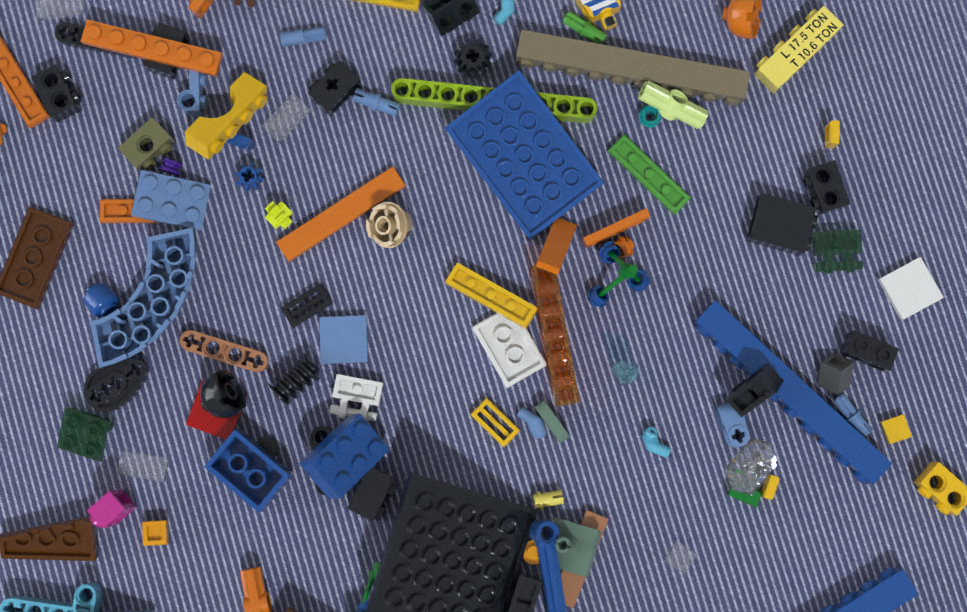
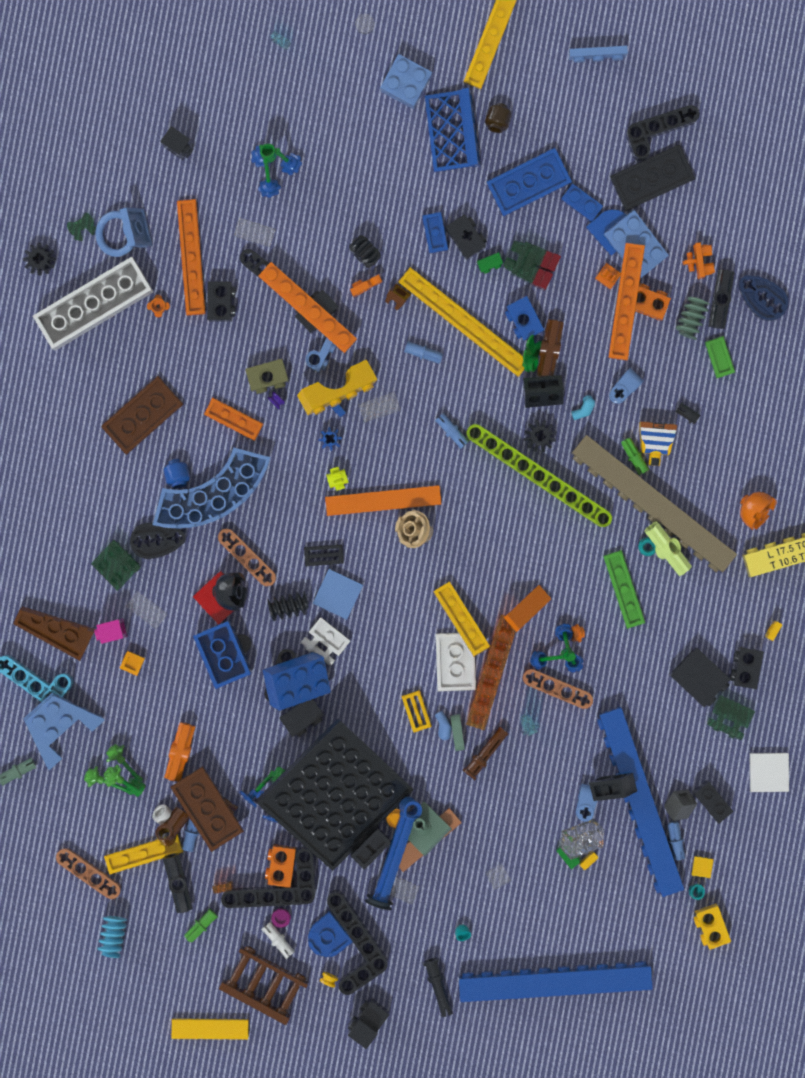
camera: 20 degrees right, 5 degrees up
(170, 200) = (264, 426): medium blue plate -> none
(330, 99) = (436, 407): black brick -> none
(524, 155) = (539, 529): blue plate -> none
(547, 499) = (424, 785): light yellow pin -> none
(592, 439) = (479, 761): none -> reddish brown pin
(615, 228) = (578, 617): orange tile -> none
(635, 320) = (558, 686): none -> nougat beam
(652, 442) = (522, 784): medium azure arm -> none
(907, 457) = (699, 892): none -> teal hinge

